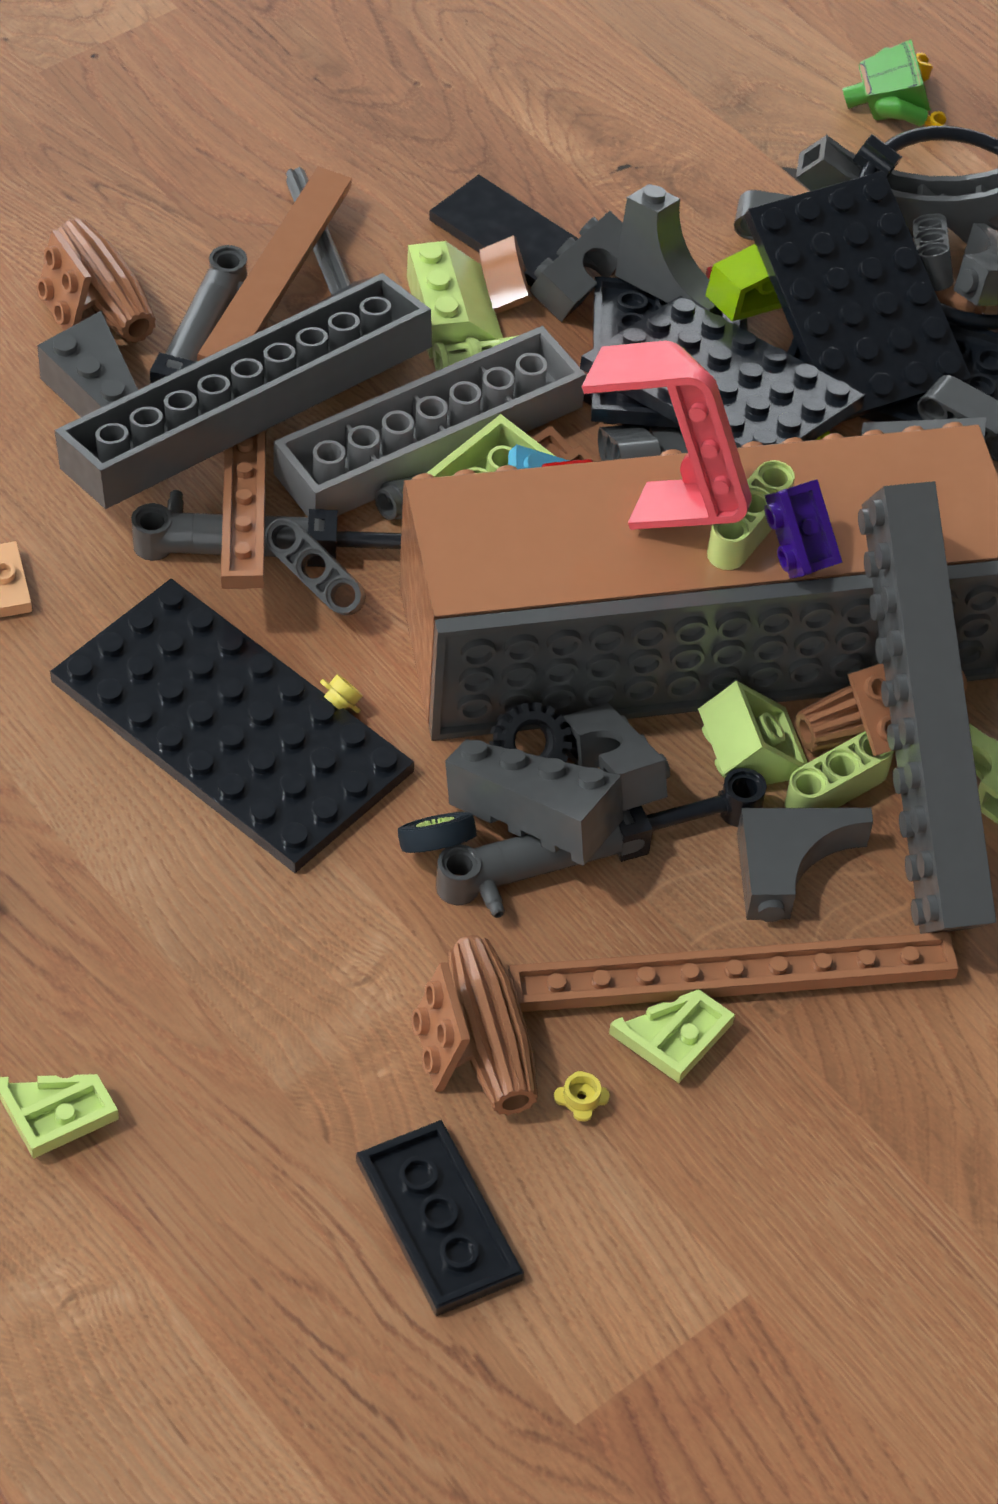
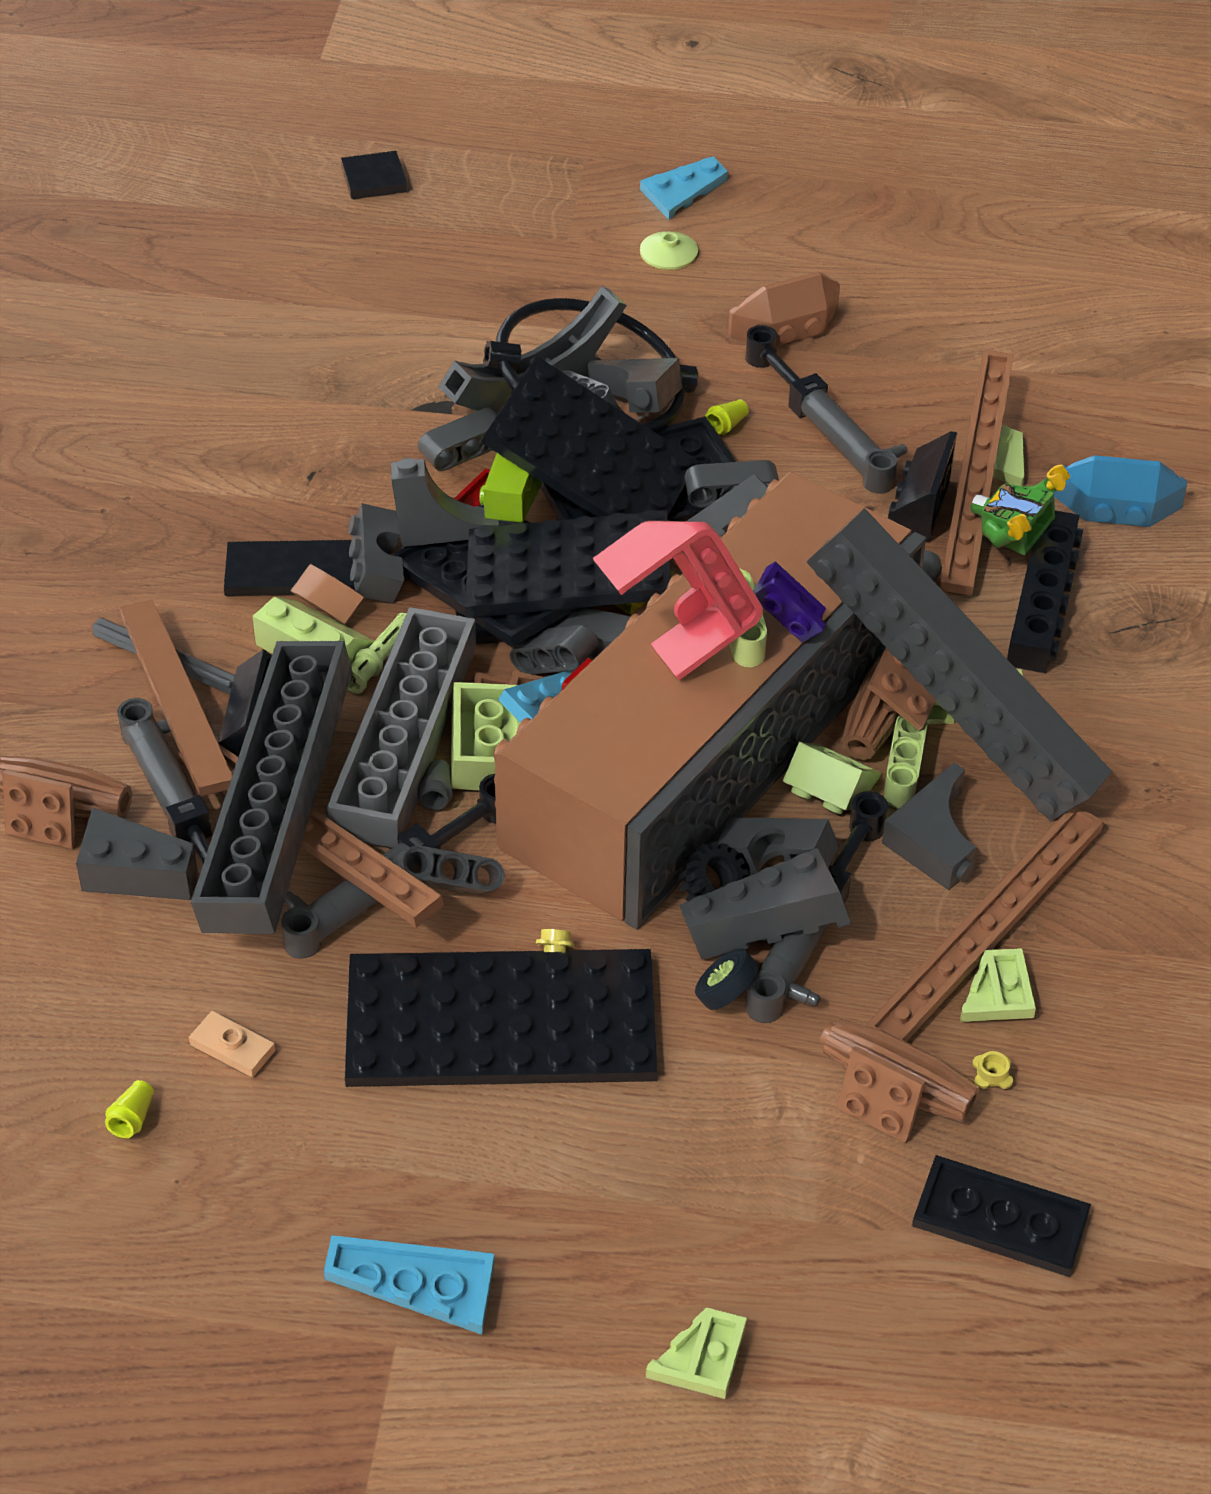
camera: 40 degrees left, 5 degrees down
(895, 86) = (435, 310): bright green torso -> none

